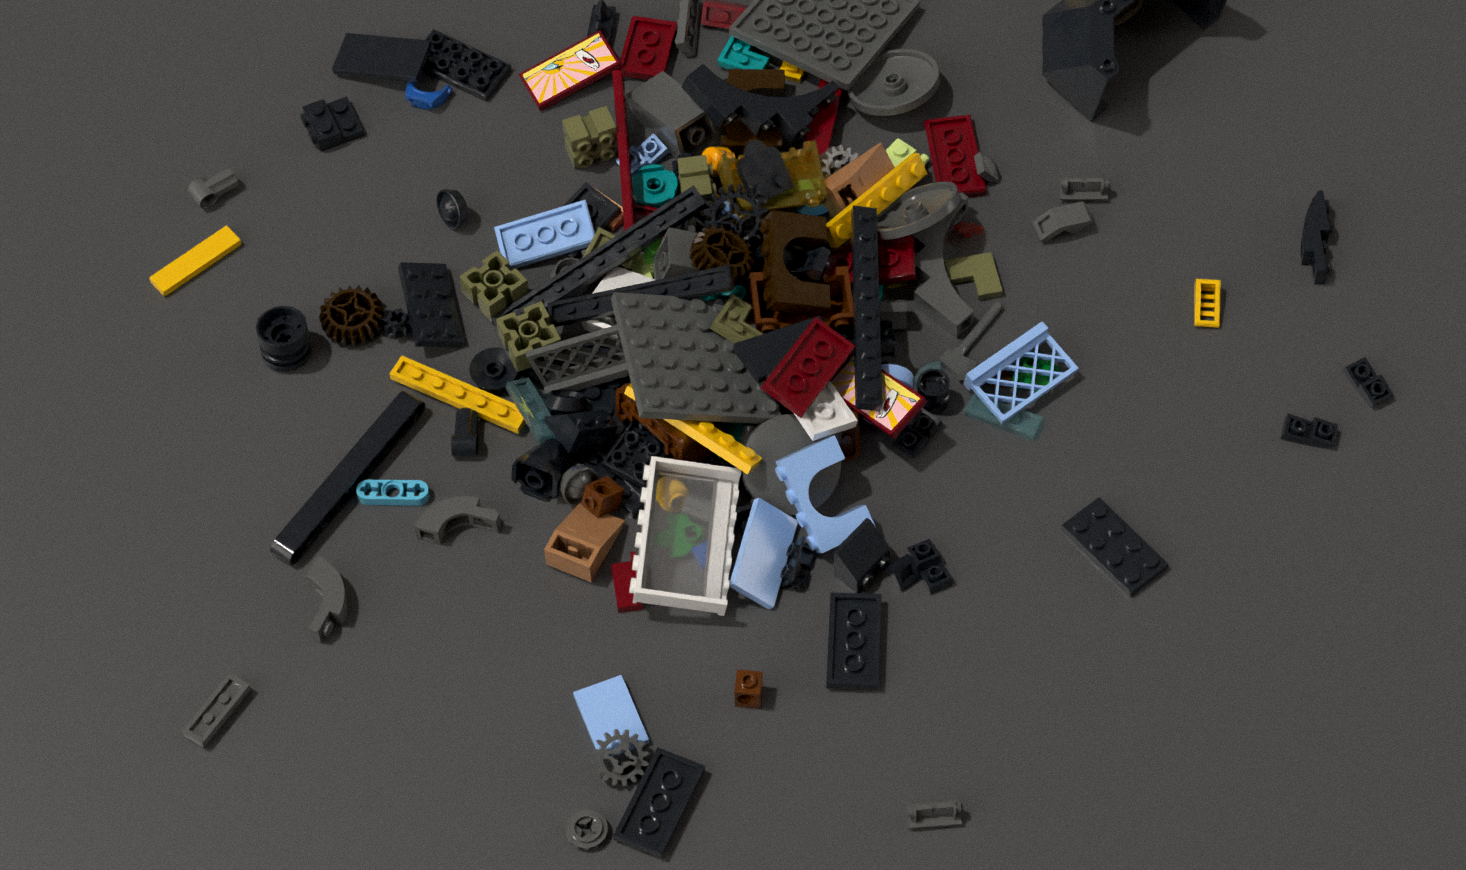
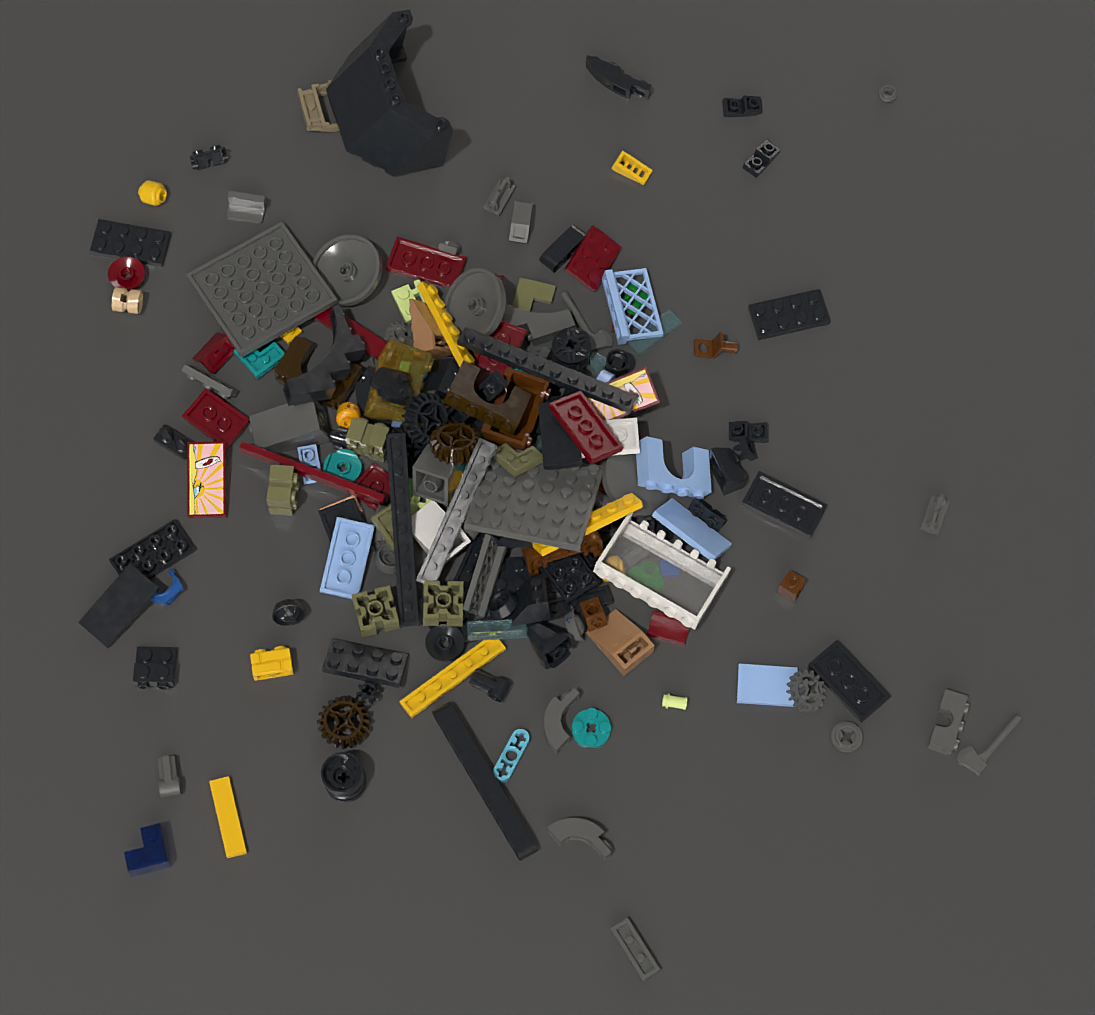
camera: 70 degrees left, 10 degrees up
(121, 210) = (153, 854): none -> clear blue brick
(387, 221) = (271, 663): none -> yellow brick
(469, 569) = (591, 717): none -> teal plate
(537, 621) = (674, 701): none -> yellowish green pin
(921, 335) = (568, 357): none -> black wheel
(1022, 485) = (714, 347): none -> reddish brown bracket
(1055, 278) = (562, 249): none -> black beam
(1061, 308) = (592, 258): none -> dark red plate

